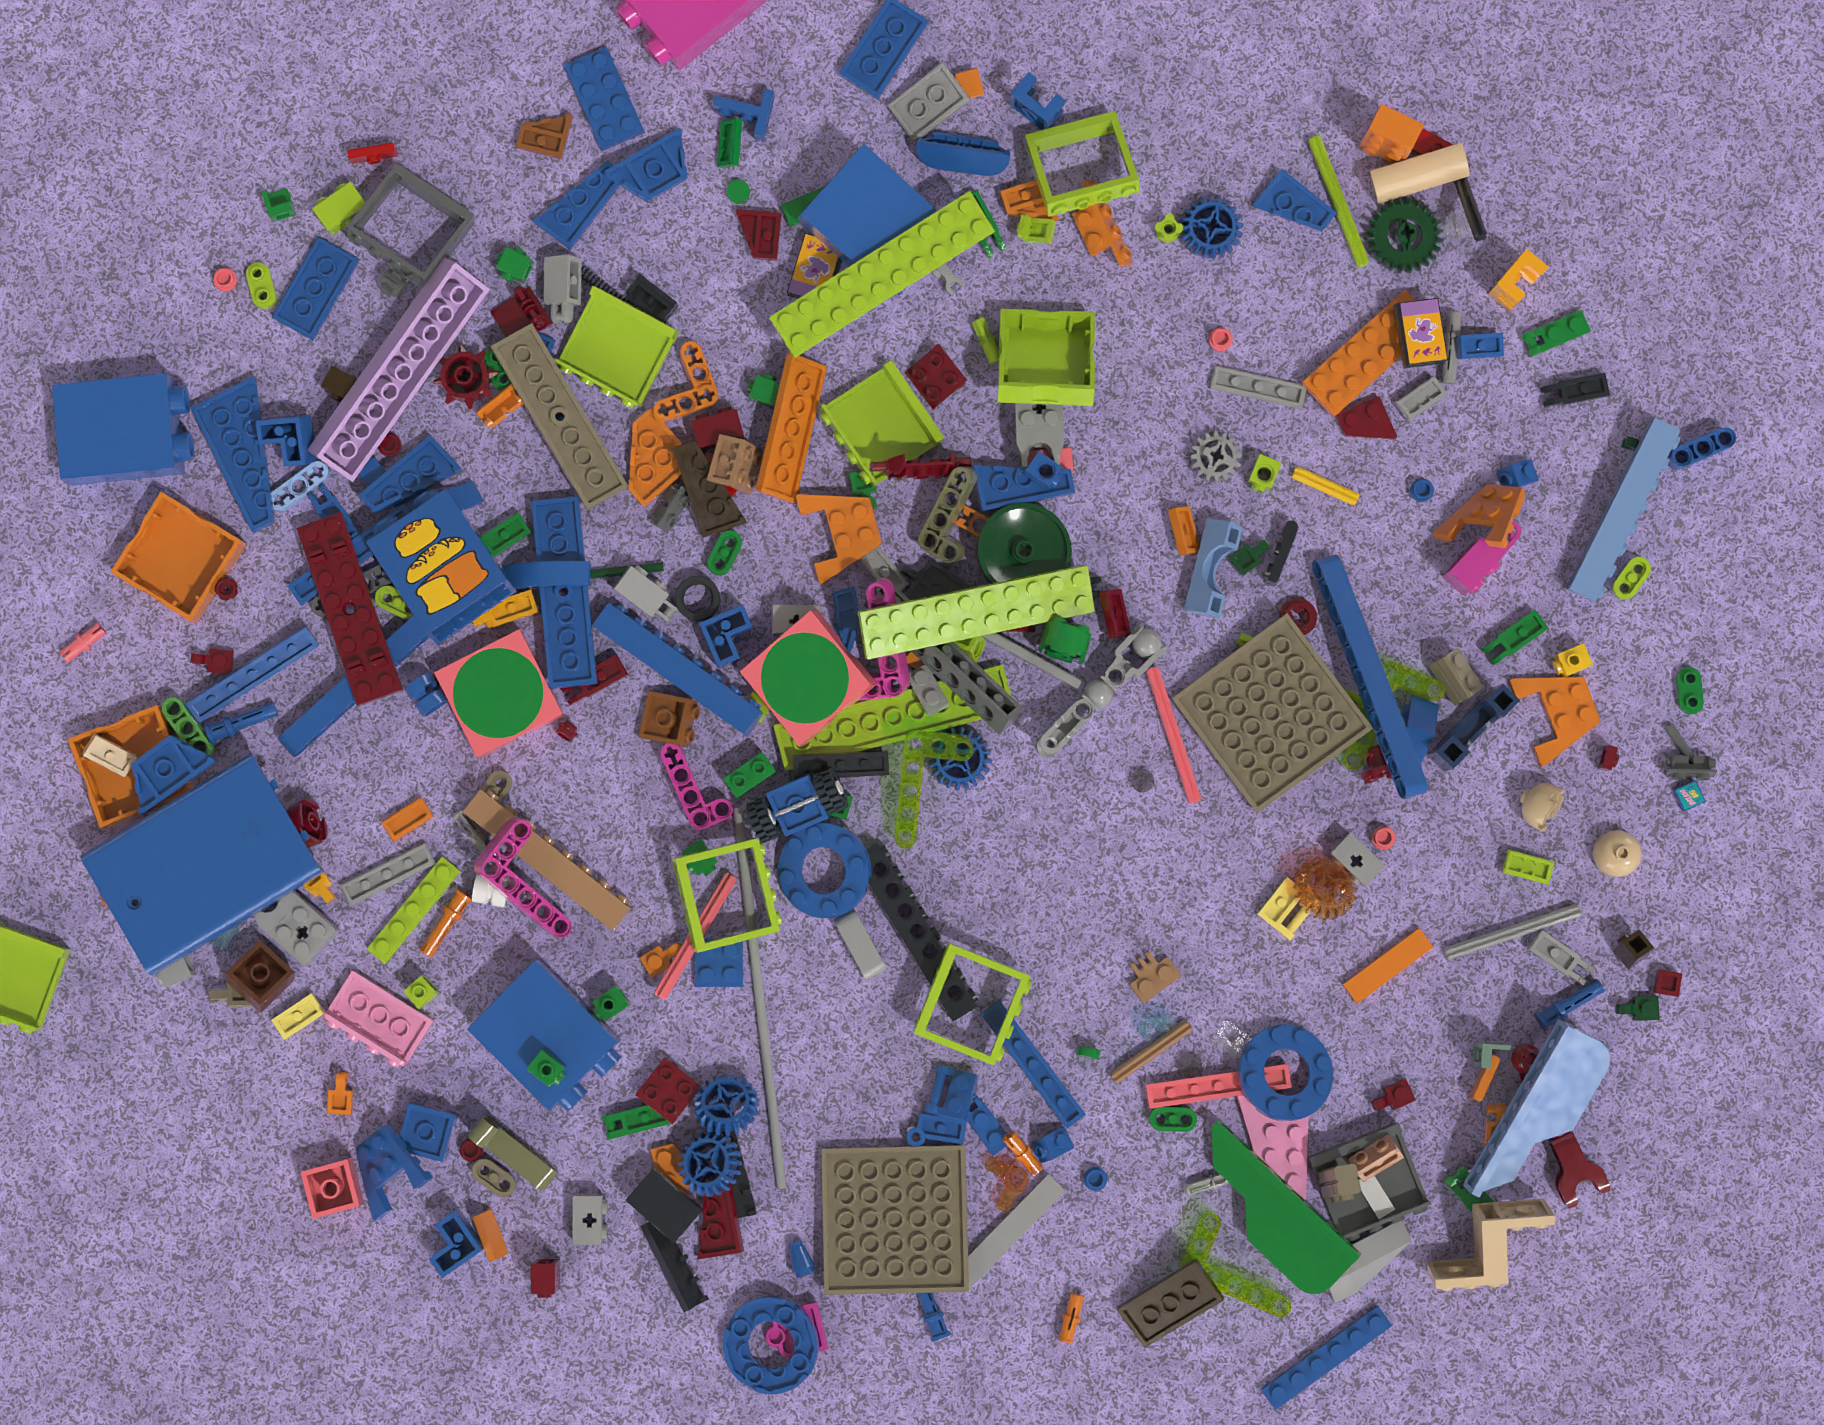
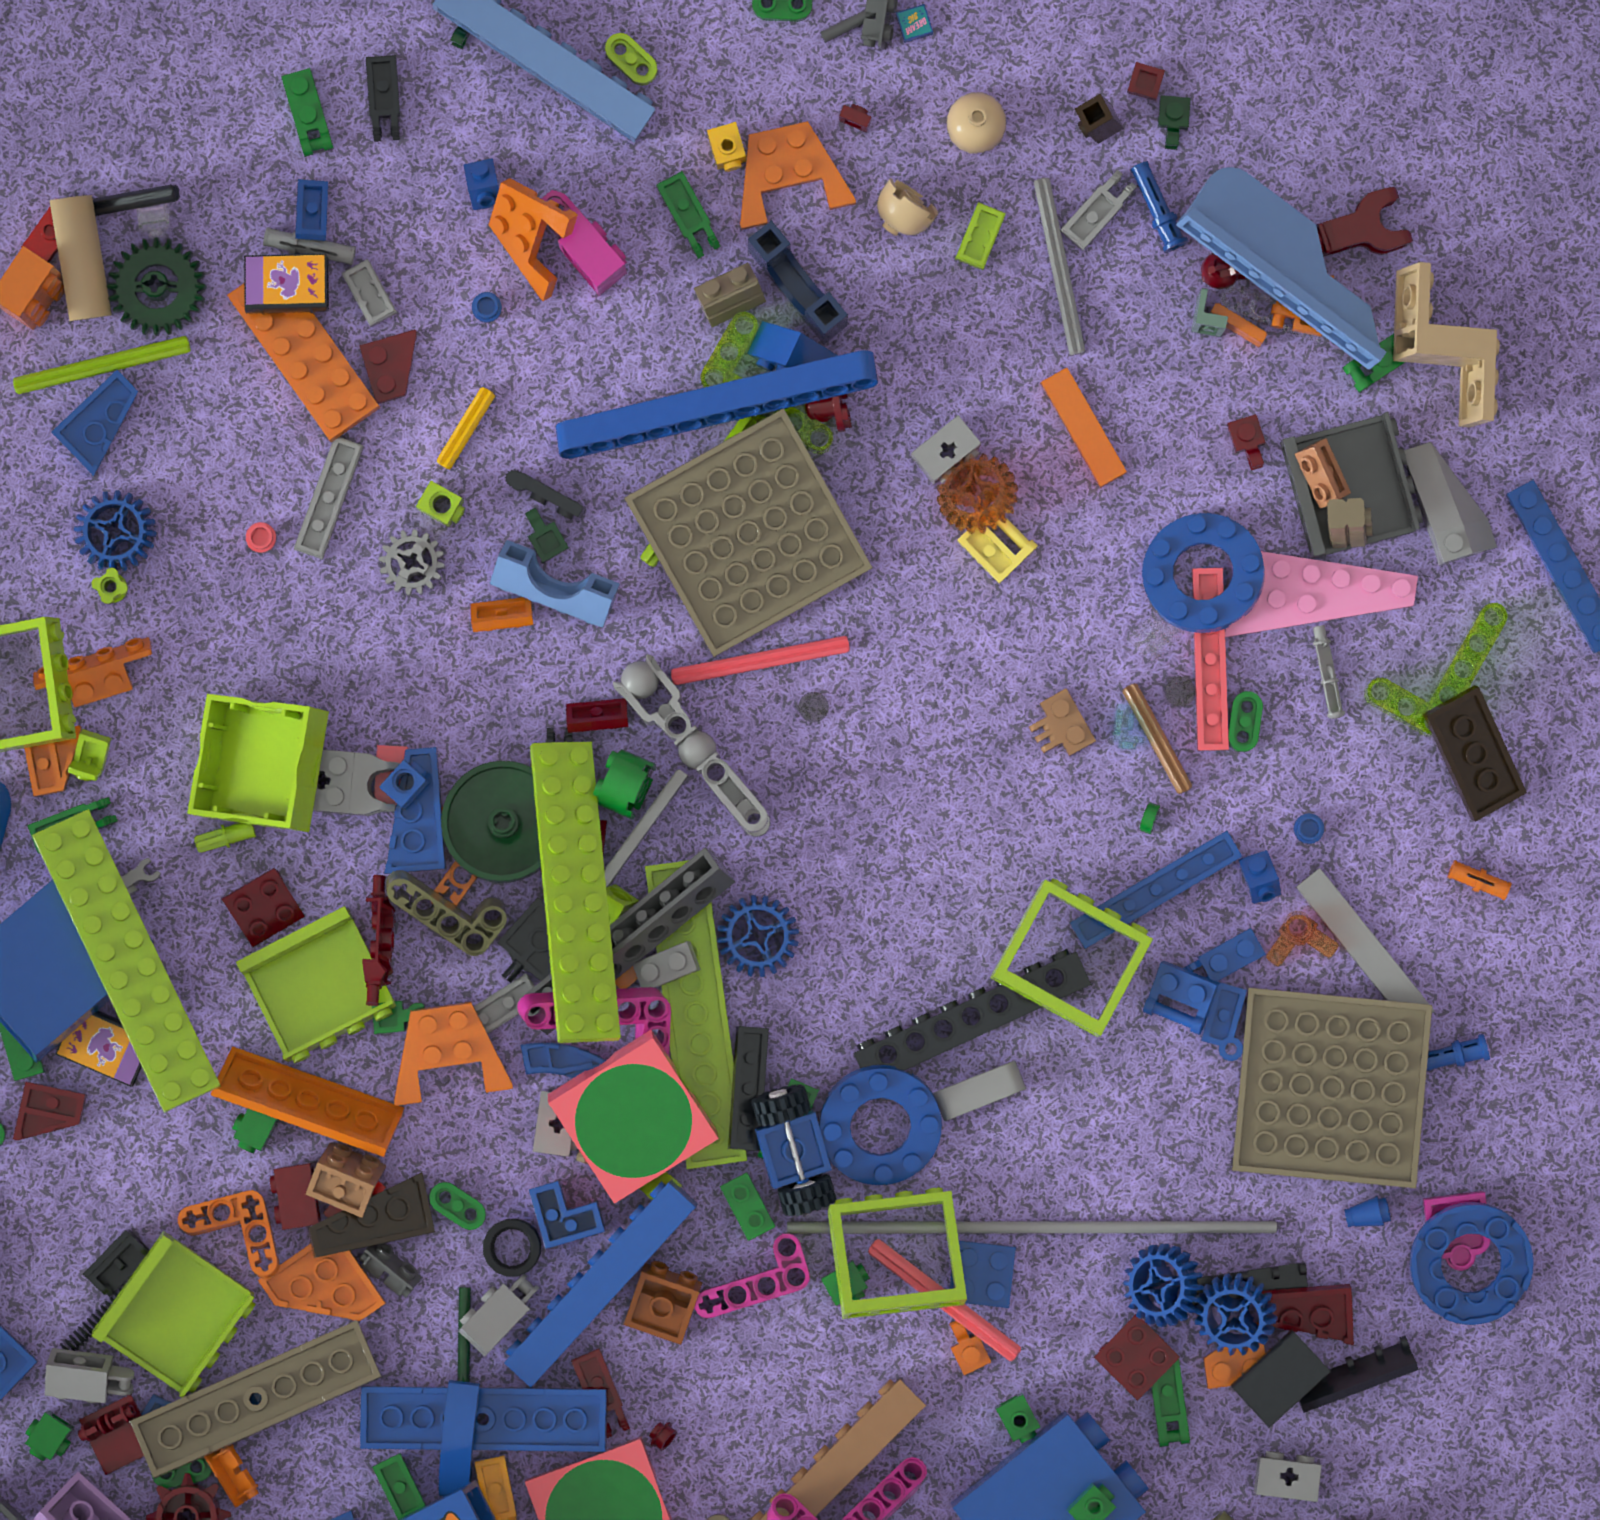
camera: 85 degrees left, 0 degrees up
(915, 777) = (775, 995): clear neon green beam -> none
(1022, 1153) = (1266, 916): orange pin -> none
(1280, 1219) = (1385, 602): green piece -> none
(1298, 605) = (614, 480): dark red gear -> none
(1376, 1197) = (1371, 479): white sticker -> none
(1383, 837) = (922, 412): coral plate -> none
(1526, 266) = (217, 140): light orange panel -> none

